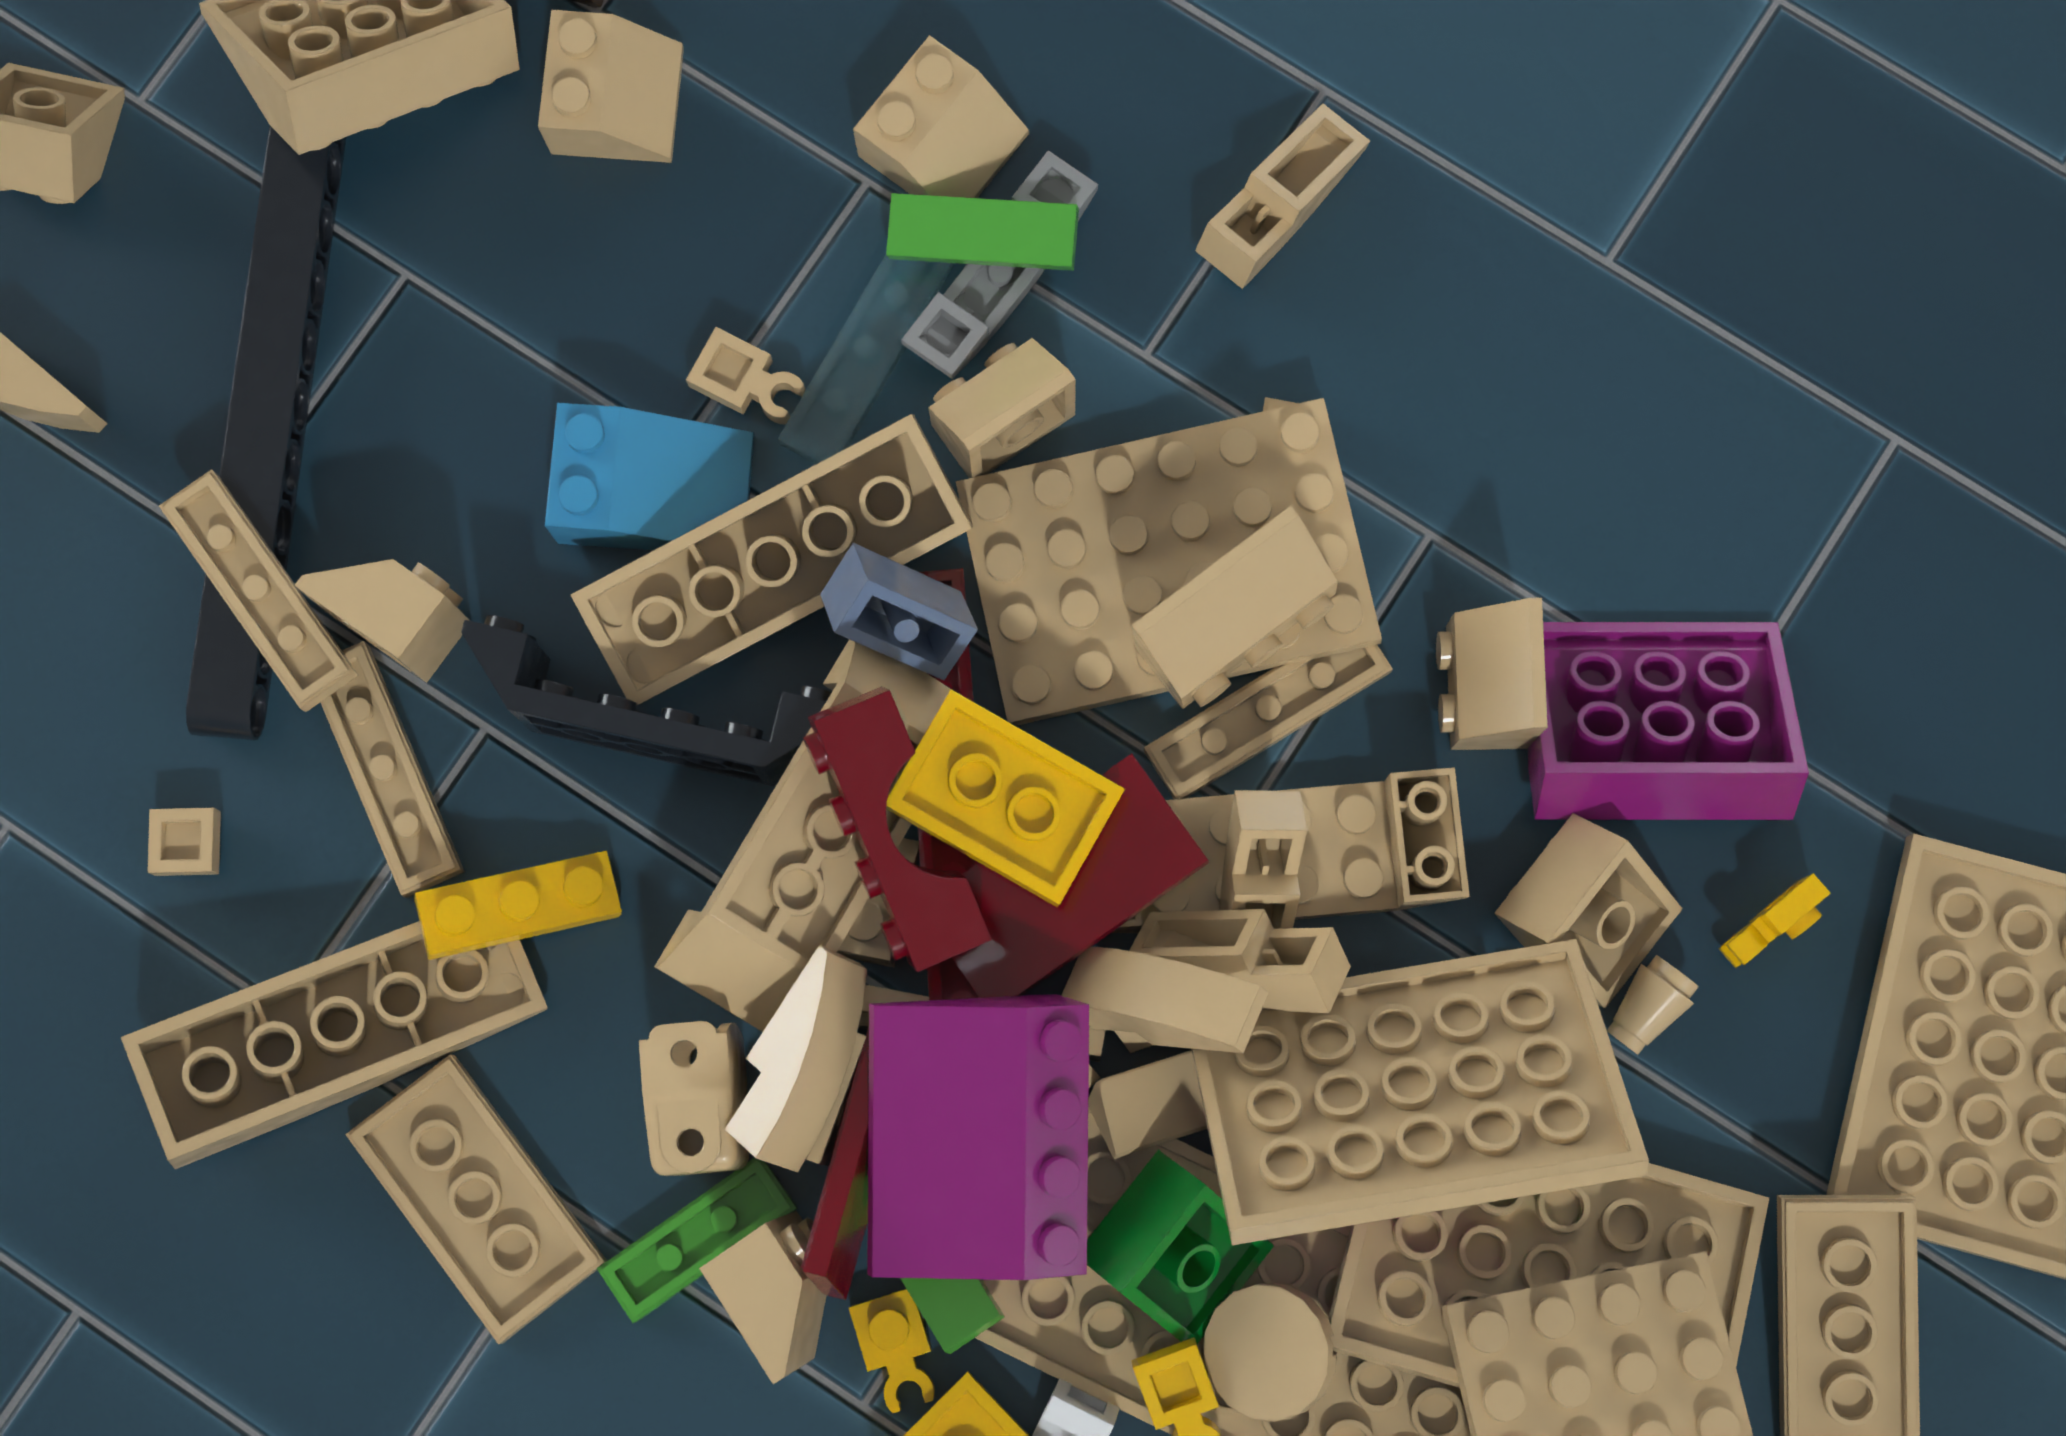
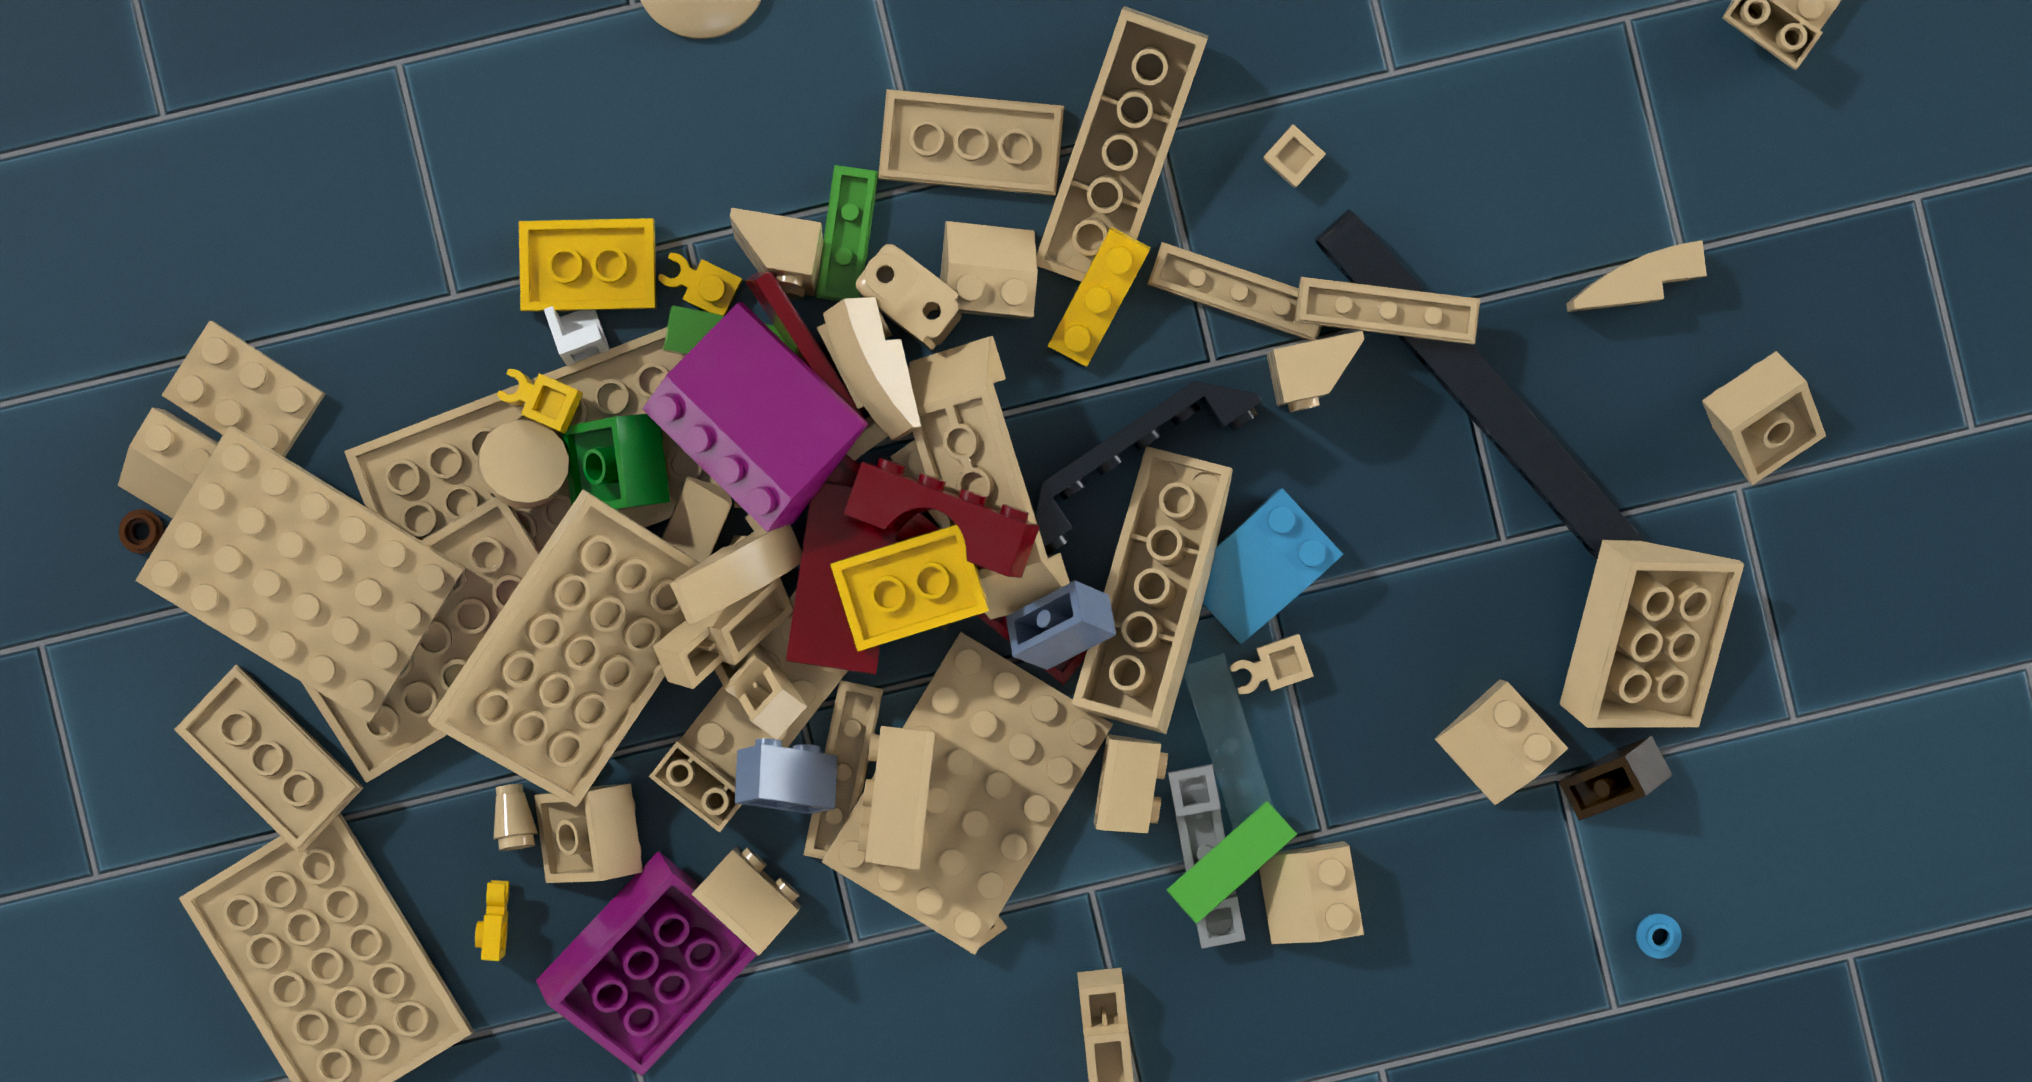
camera: 130 degrees right, 10 degrees up
(587, 1044) = (990, 269): none -> tan slope
(1331, 753) = (786, 777): none -> sand blue brick

